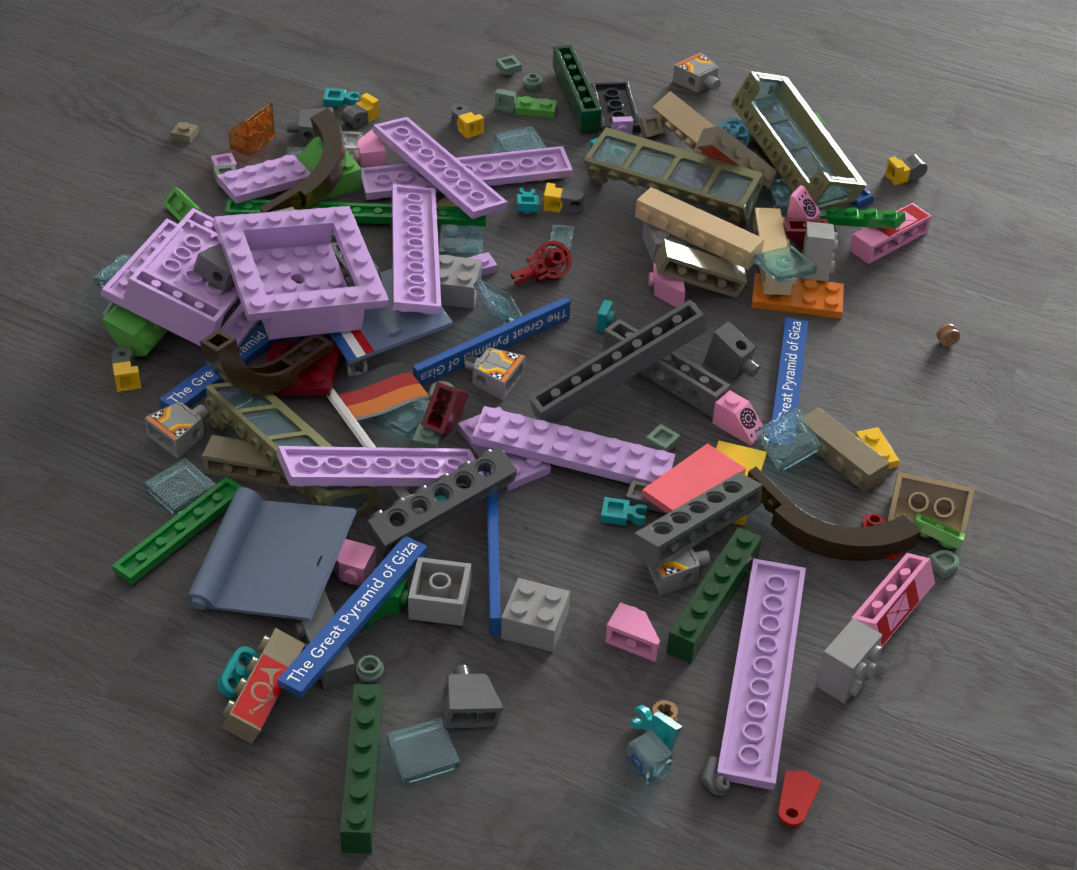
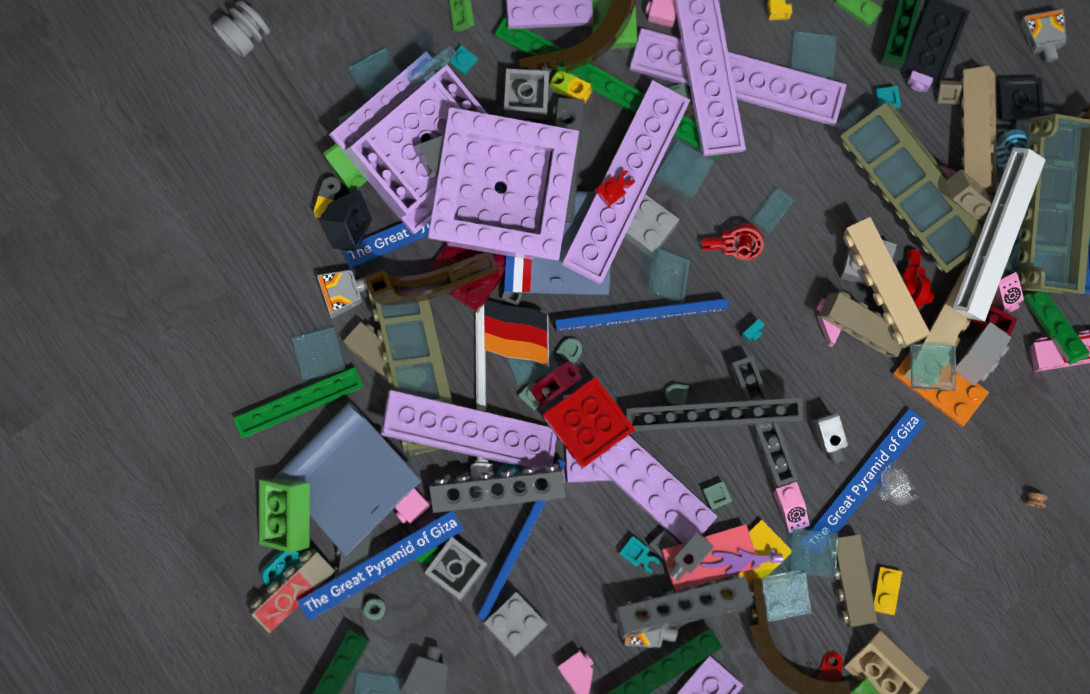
camera: 25 degrees right, 35 degrees up
(152, 368) = (346, 221): none -> black slope
(178, 209) = (427, 70): none -> clear light blue plate
(216, 615) = (284, 514): none -> bright green slope
(407, 247) = (613, 190): none -> red plate
(488, 264) = (687, 208): lavender plate -> none
(496, 371) = (624, 352): light grey torso -> none
(499, 413) = (588, 423): none -> red plate
(527, 201) = (771, 145): teal plate -> none
(563, 200) = (804, 160): leg -> none
(674, 476) = (698, 548): none -> dark grey torso
(714, 110) = (1021, 98): none -> black plate
(725, 468) = (739, 563): none -> medium lavender piece
(767, 163) = (999, 234): none -> white brick
(792, 478) = (786, 595): none -> clear light blue plate
(822, 364) = (896, 486): none -> clear cylinder

